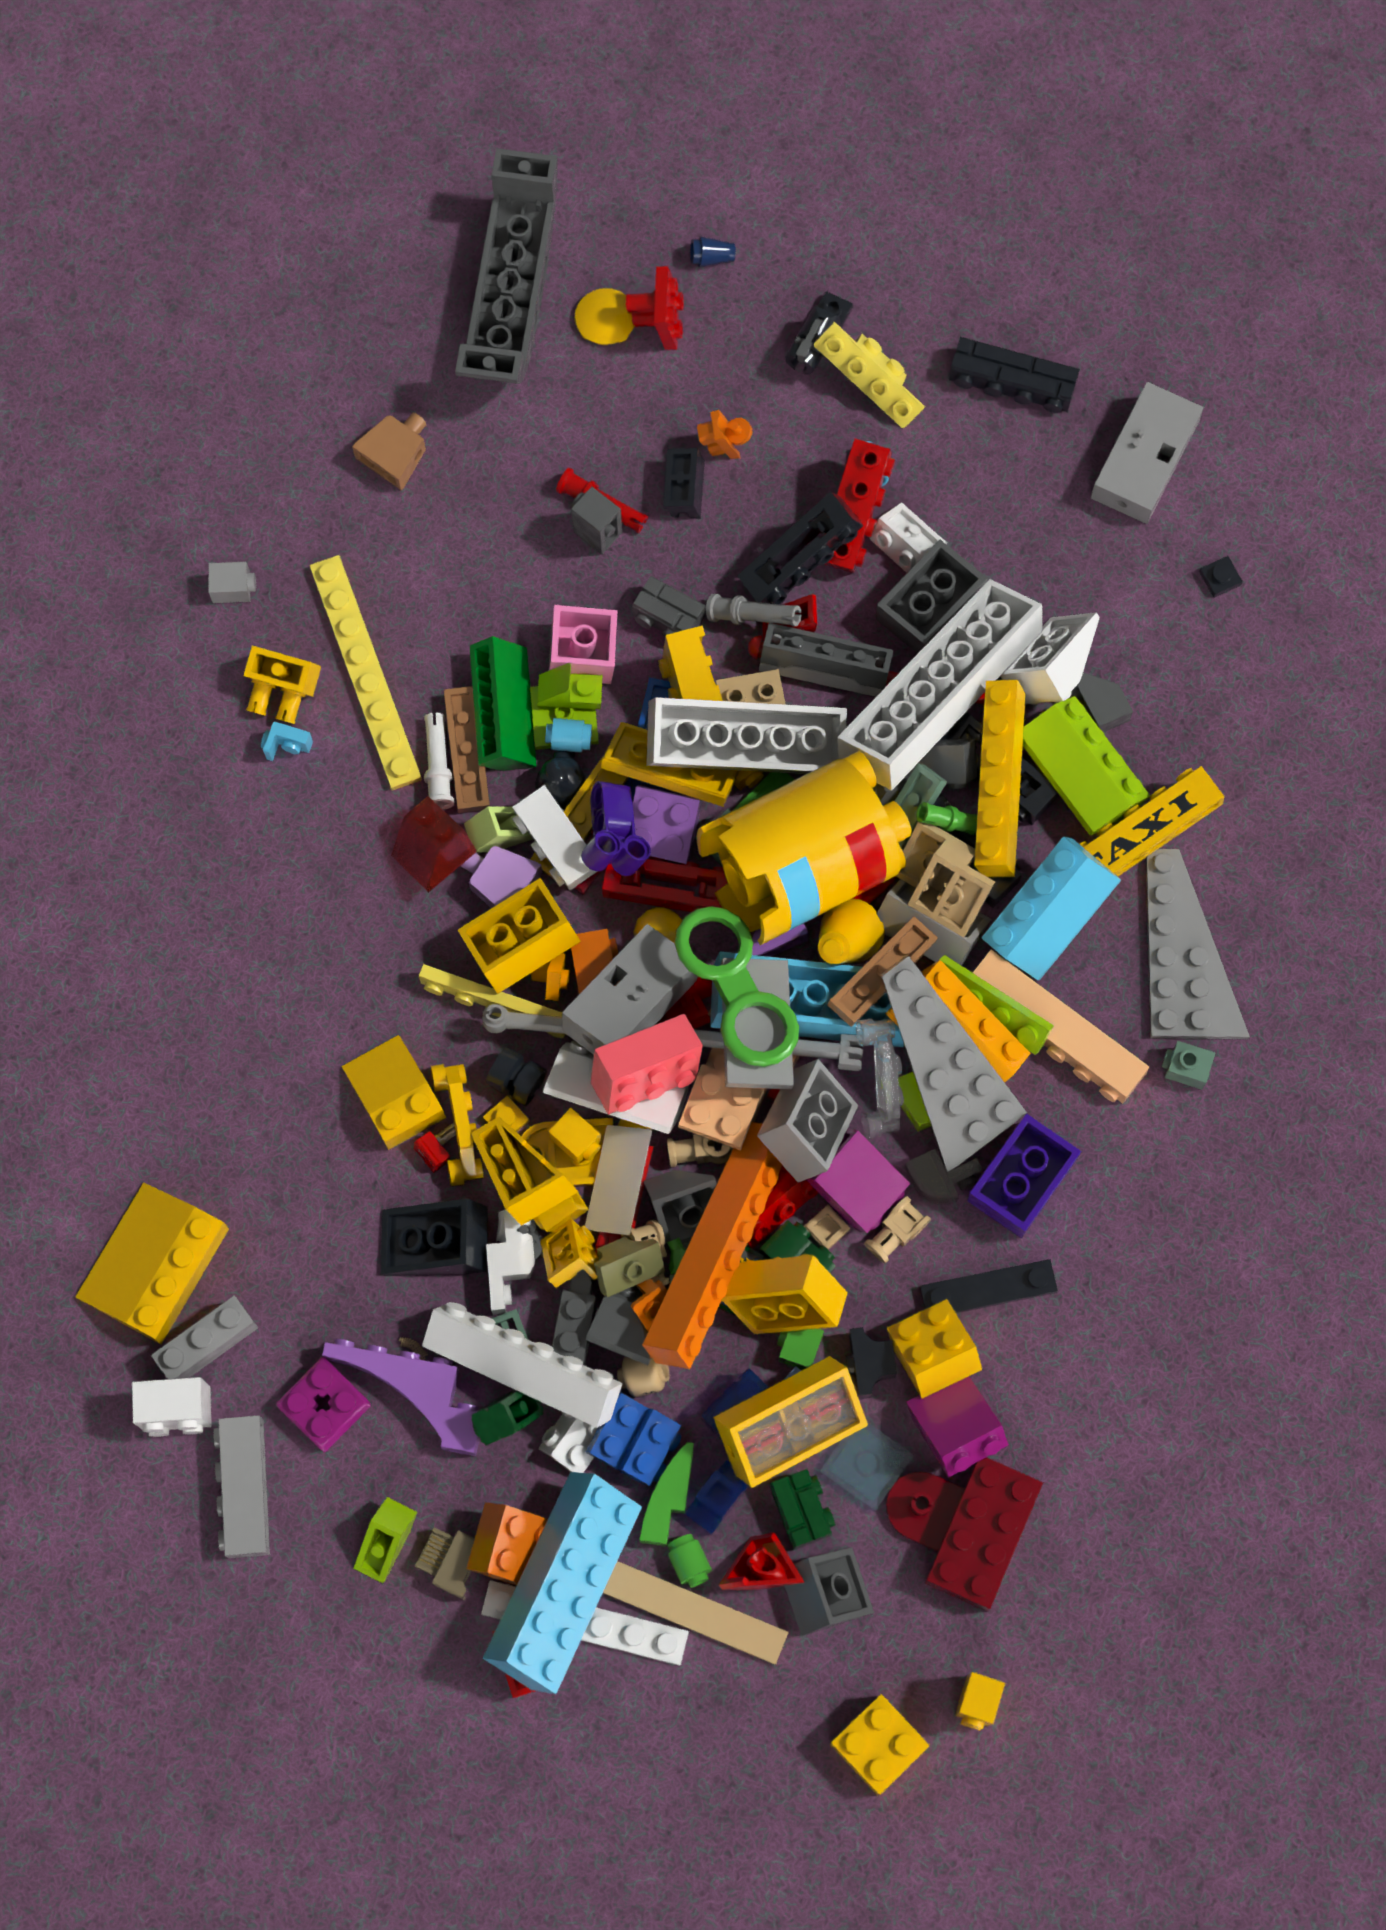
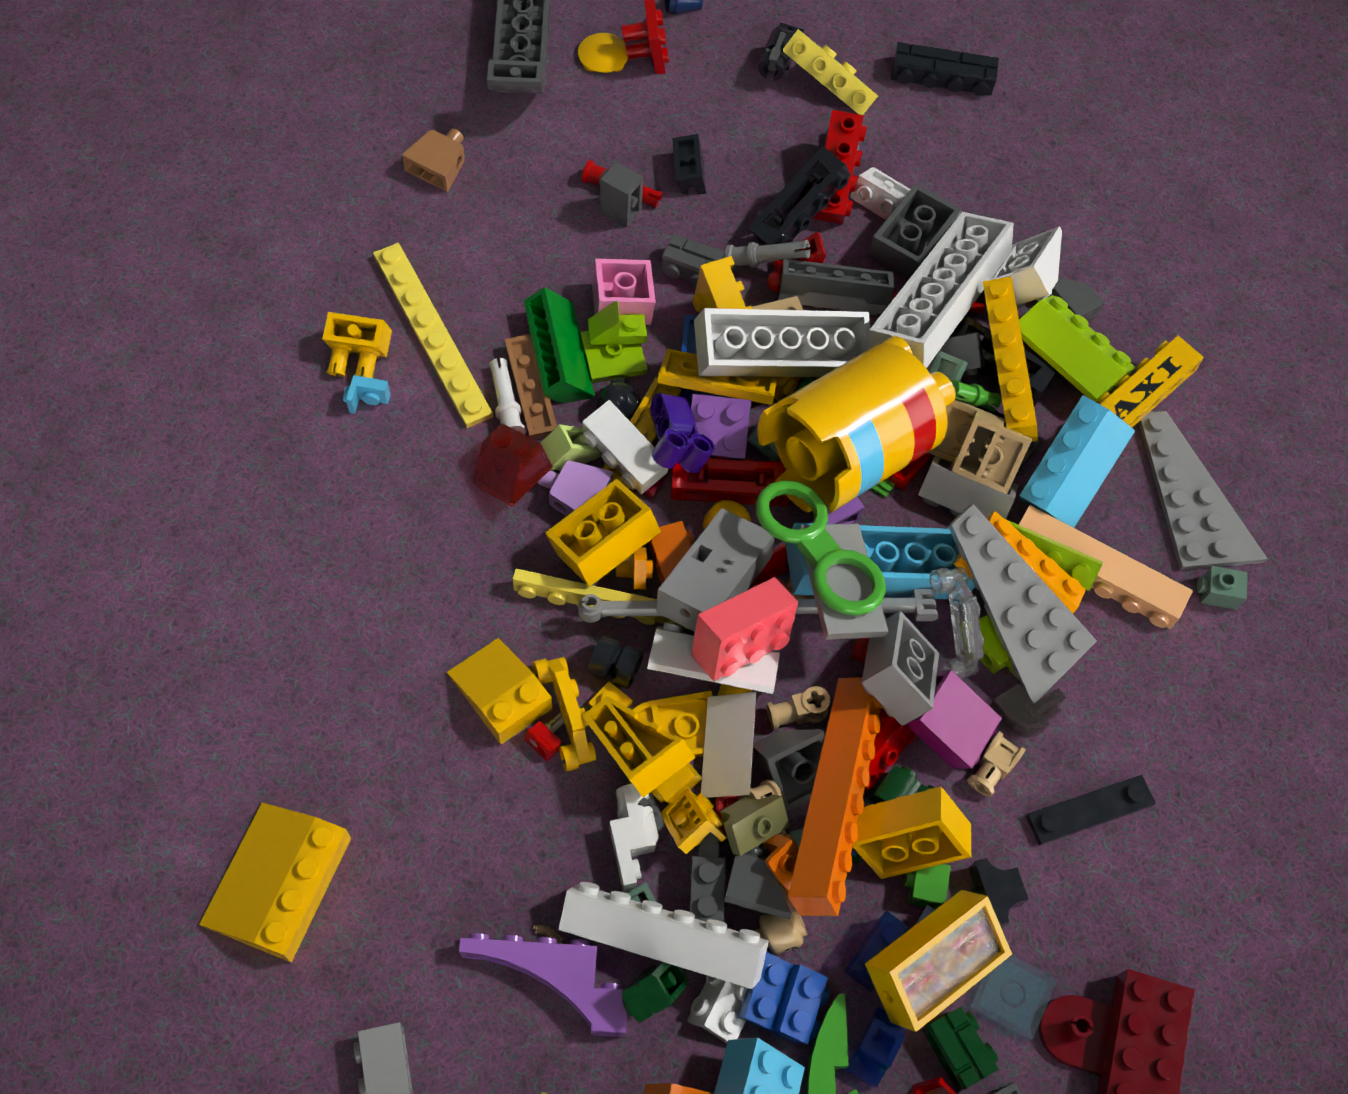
camera: 15 degrees left, 10 degrees down
(172, 1405) = (307, 1023): white brick -> none
(205, 1340) = (336, 952): light grey brick -> none
(231, 582) = (303, 270): light grey brick -> none
(346, 1404) = (467, 1025): magenta brick -> none
(434, 1239) = (557, 823): black slope -> none
(569, 735) = (622, 364): medium azure brick -> none
(575, 1136) = (681, 709): yellow brick -> none
(677, 1253) = (796, 813): bright green rock -> none
(719, 1110) = (814, 664): light nougat bracket -> none
(722, 435) = (715, 125): orange hips -> none
(827, 1227) = (930, 769): tan tile -> none
(850, 933) = (901, 502): yellow cone -> none
(867, 985) = (936, 536): medium nougat plate -> none
(934, 1348) = (1060, 870): yellow brick -> none
(958, 1425) = (1098, 941): magenta brick -> none
(1023, 1176) = (1103, 700): dark purple brick -> none
(1147, 452) = (1065, 115): light grey brick -> none
(1220, 576) = (1144, 202): black plate -> none

